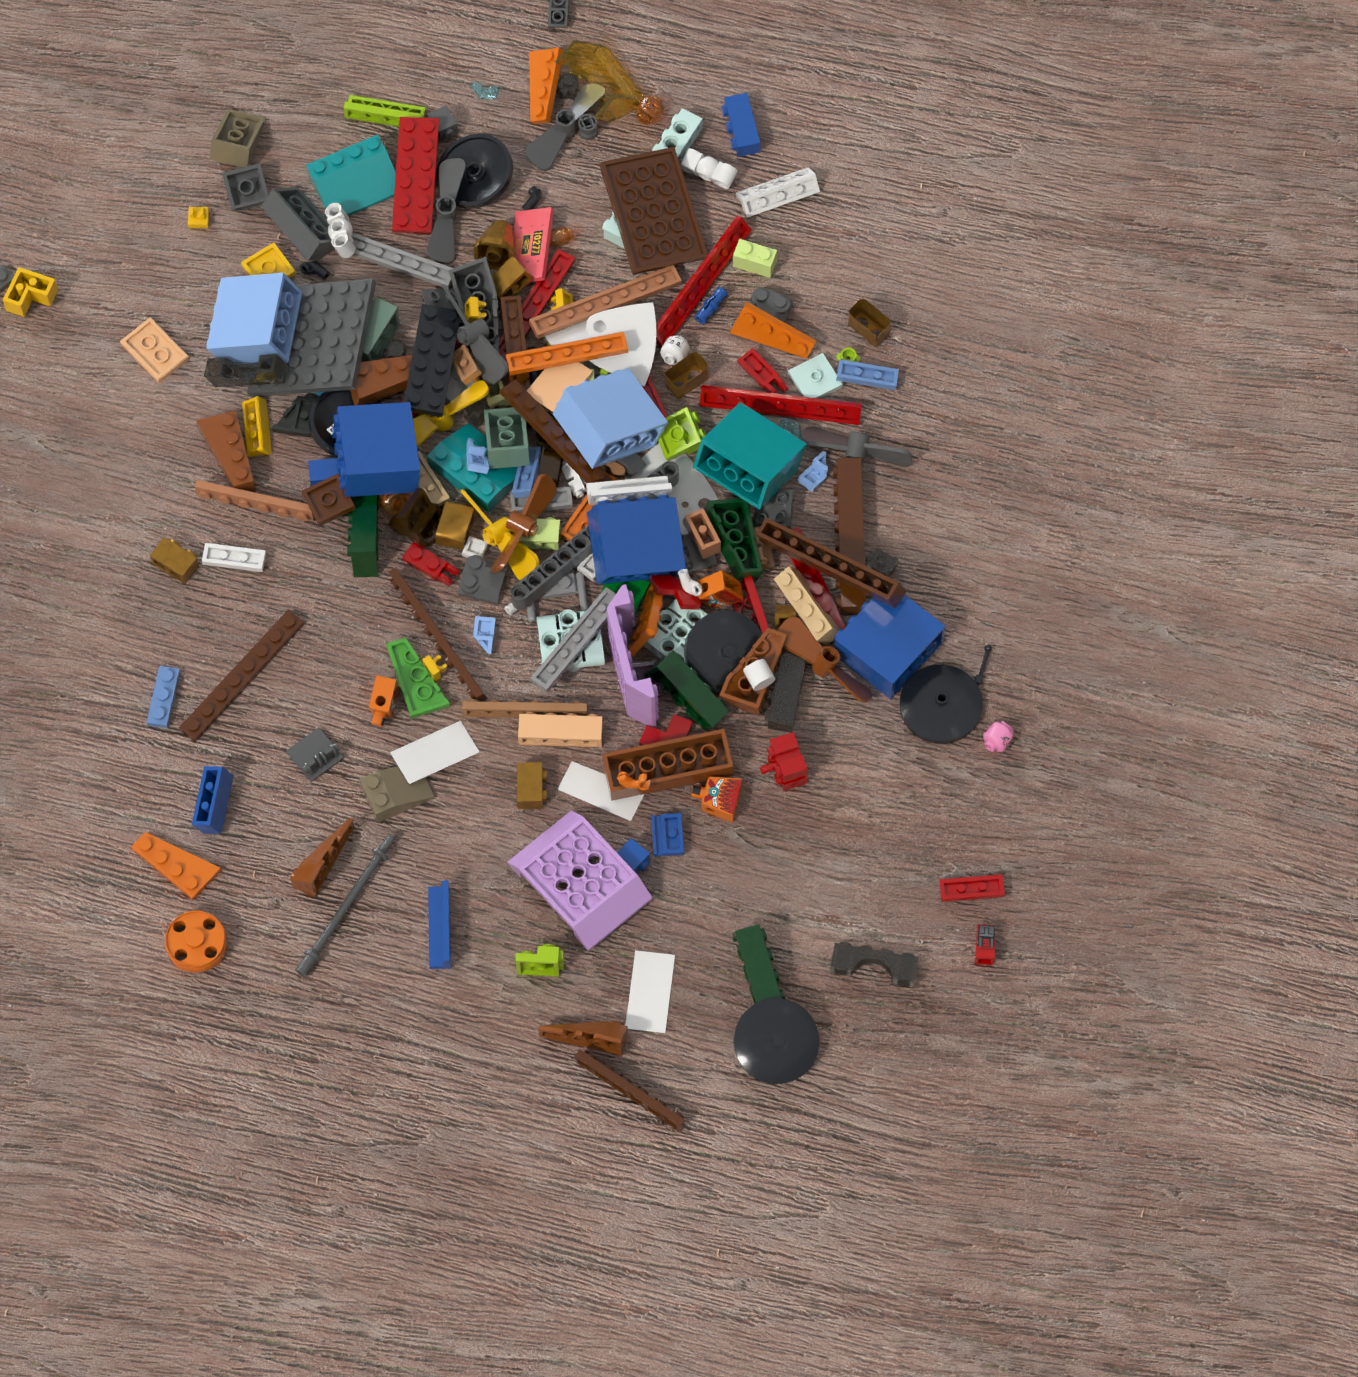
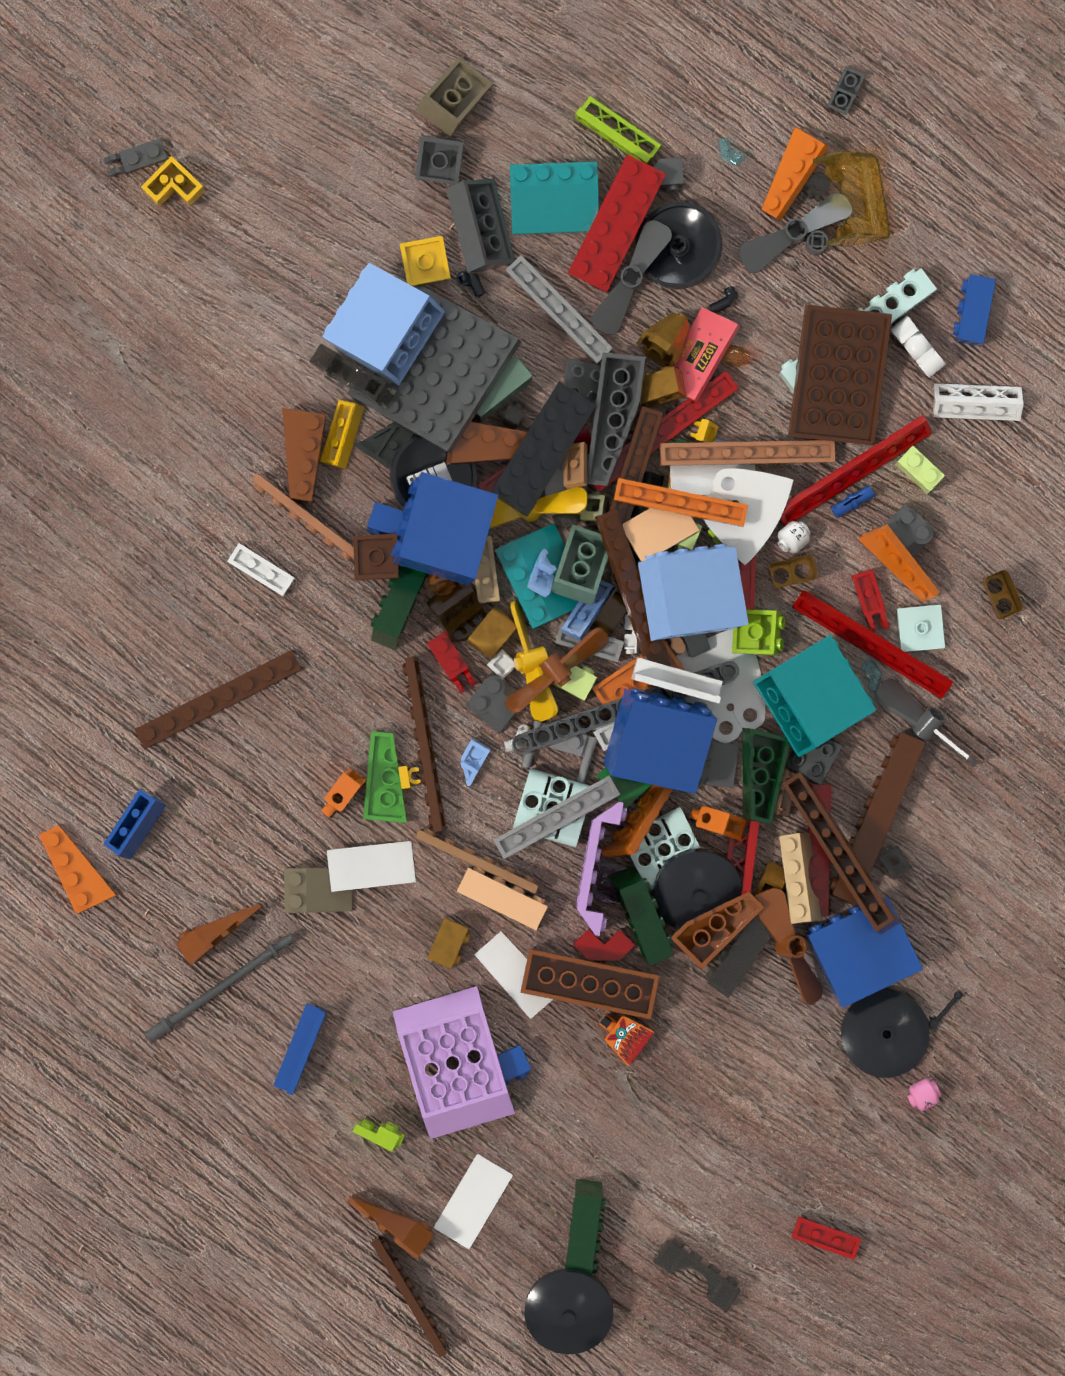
camera: 20 degrees right, 20 degrees up
(154, 350) = (274, 302): light nougat tile -> none
(163, 697) = (133, 688): medium blue plate -> none
(174, 560) = (201, 547): pearl gold brick -> none
(195, 941) = (61, 962): orange piece -> none
(198, 217) = (379, 170): yellow tile -> none
(315, 754) = (254, 815): dark grey hinge -> none
(340, 230) = (513, 245): white piece -> none
(472, 309) = (606, 411): yellow tile -> none
(475, 334) = (595, 440): dark grey piece -> none
(627, 782) = (553, 1000): orange arm -> none
(649, 110) = (888, 251): clear orange head -> none
(667, 835) = (558, 1052): blue plate -> none
(671, 586) = (684, 814): red tile -> none
(688, 584) = (692, 809): white arm -> none
(702, 533) = (731, 755): nougat brick -> none
(759, 674) = (716, 940): white piece -> none
(786, 762) = (704, 1034): red brick -> none
(815, 474) = (874, 732): light blue slope -> none
(848, 352) = (968, 615): lime plate -> none
(867, 374) = (974, 649): medium blue plate -> none
(985, 945) = (812, 1300): leg -> none

